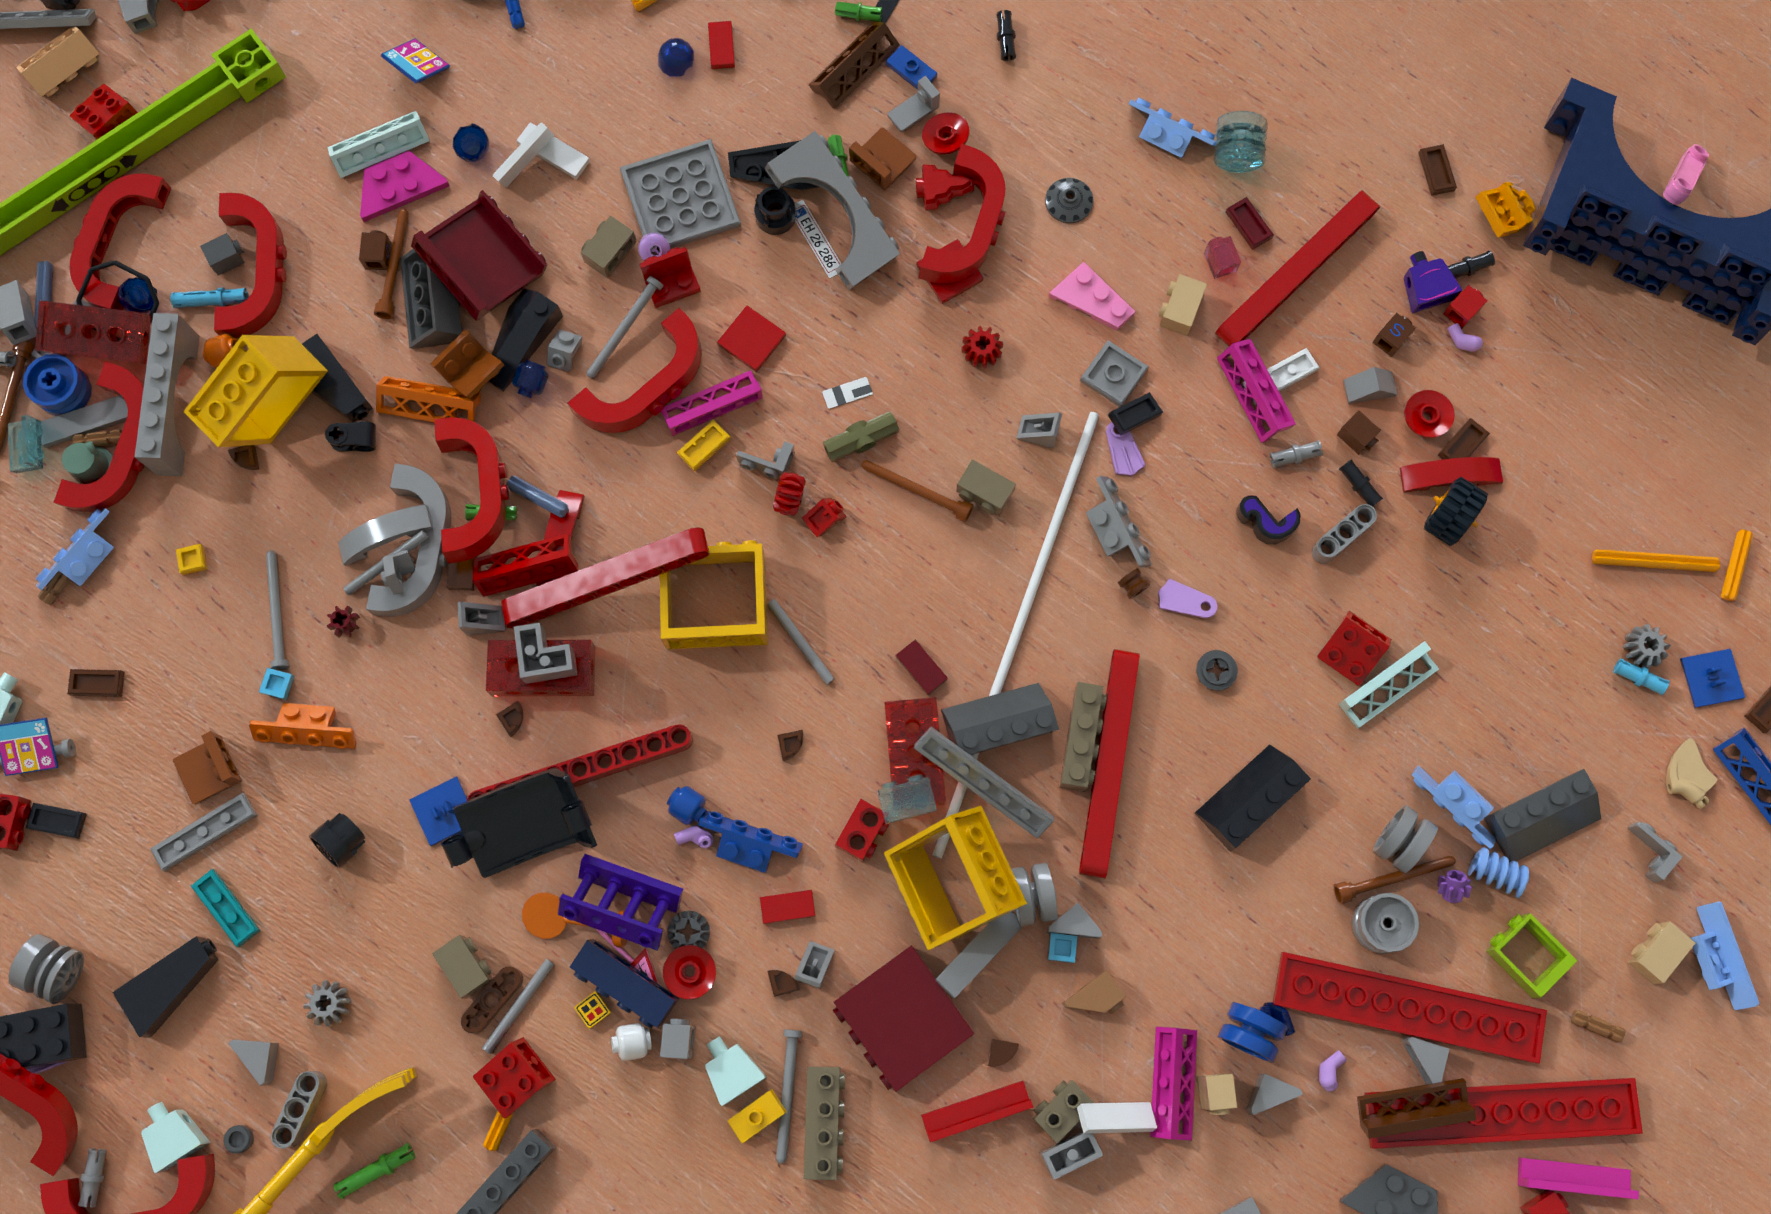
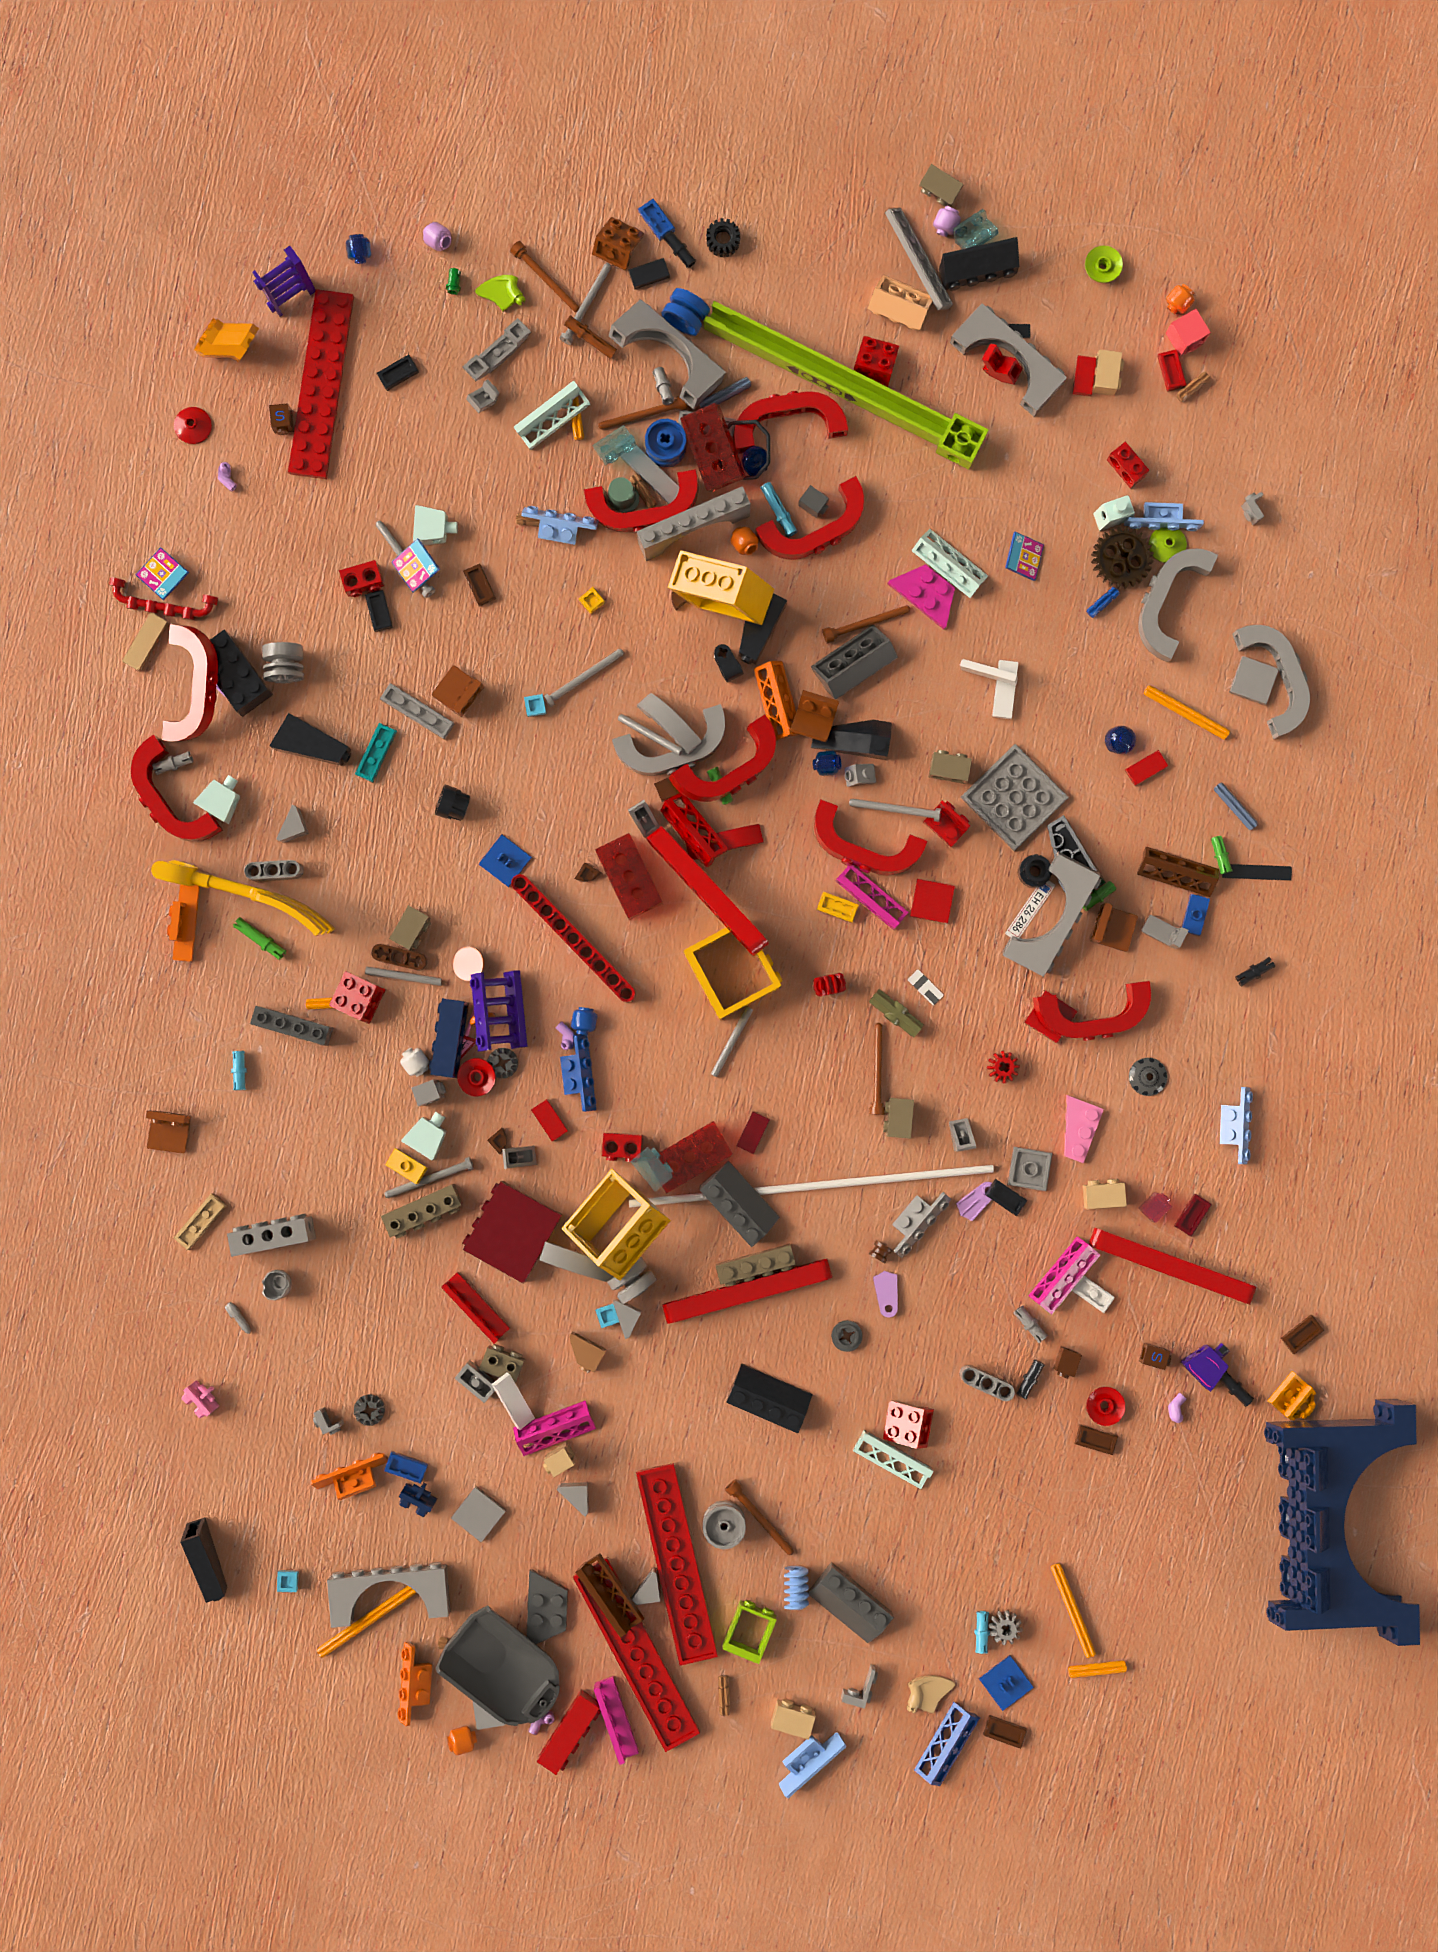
camera: 65 degrees right, 10 degrees up
(238, 1139) = (238, 841): dark grey tile -> none
(304, 726) = (516, 738): orange bracket -> none
(323, 994) = (350, 845): light grey gear -> none
(336, 621) = (597, 732): dark red gear -> none
(375, 250) = (868, 605): reddish brown brick -> none
(394, 567) = (648, 743): light grey bracket -> none
(471, 143) = (980, 629): clear blue hair -> none
(480, 256) = (897, 683): dark red panel -> none
(519, 823) = (518, 917): black panel -> none
(537, 496) = (745, 813): sand blue axle -> none
(542, 662) = (628, 874): light grey brick -> none
(592, 1010) = (423, 1025): yellow tile -> none
(653, 239) = (963, 801): lavender head -> none
(782, 457) = (853, 966): light grey bracket -> none
(790, 743) = (658, 1069): reddish brown tile -> none
(824, 516) = (826, 1015): red bracket -> none
(940, 186) = (1111, 980): red rock -> none
(943, 126) = (1158, 957): red dish -> none
(984, 782) = (690, 1213): light grey tile -> none
(1001, 1052) = (521, 1306): reddish brown tile -> none
(1240, 141) = (1250, 1182): clear light blue wheel -> none
(1252, 1033) = (610, 1466): blue wheel -> none
(1264, 524) = (967, 1323): black animal -> none
(1280, 1014) = (631, 1480): clear blue arm -> none
(1327, 1071) = (609, 1527): lavender arm -> none
(1370, 385) = (1107, 1355): light grey slope -> none
(1405, 839) = (787, 1514): light grey wheel -> none
(1444, 472) = (1069, 1440): red slope -> none
(1454, 886) = (772, 1561): medium lavender gear -> none
(1455, 511) = (1038, 1454): black wheel -> none
(1461, 800) = (832, 1542): light blue bracket -> none
(1465, 306) = (1201, 1399): red brick -> none
(1686, 174) = (1378, 1519): bright pink piece -> none

